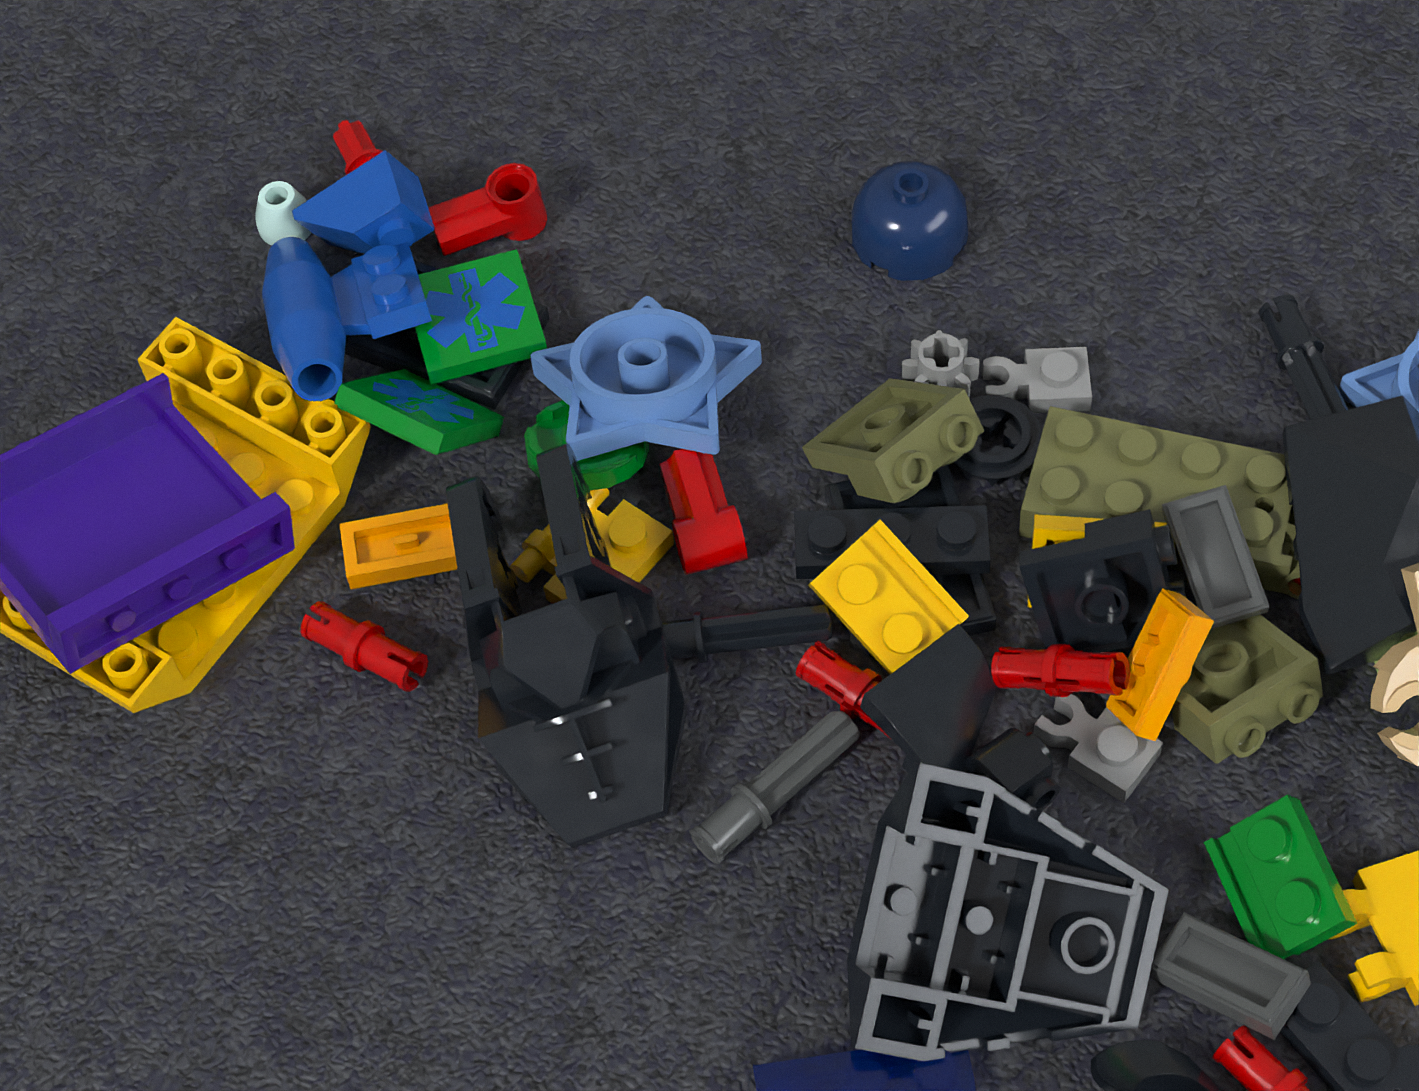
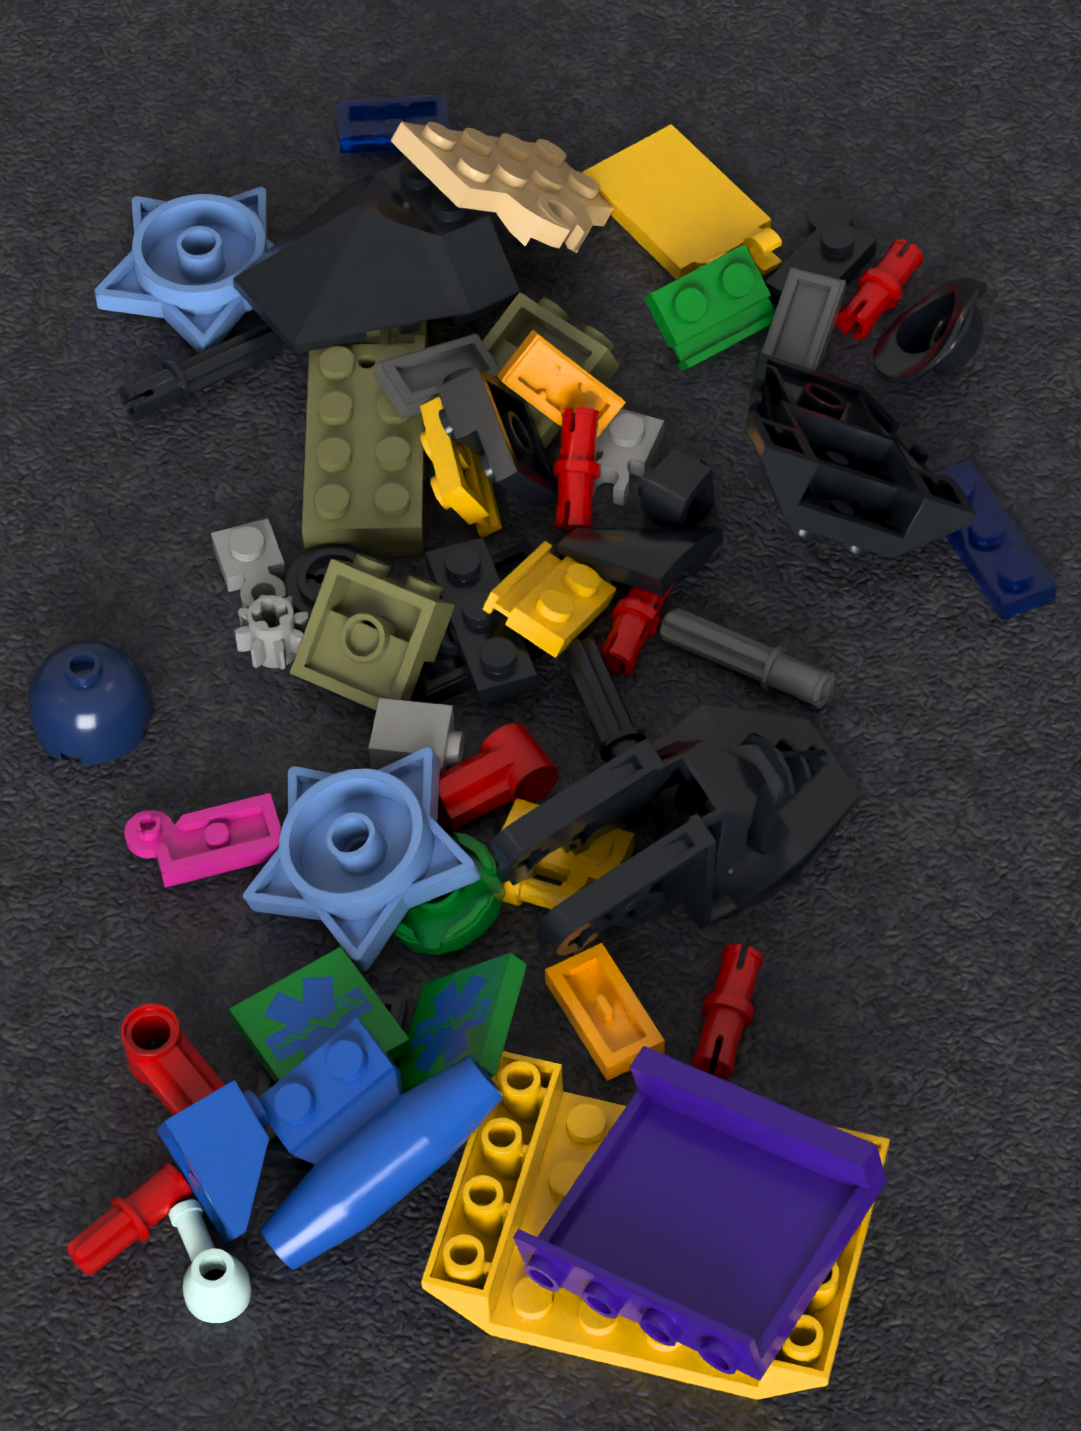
camera: 110 degrees left, 5 degrees down
(719, 276) = (206, 839): none -> dark pink hinge
(762, 455) = (410, 726): none -> light grey brick

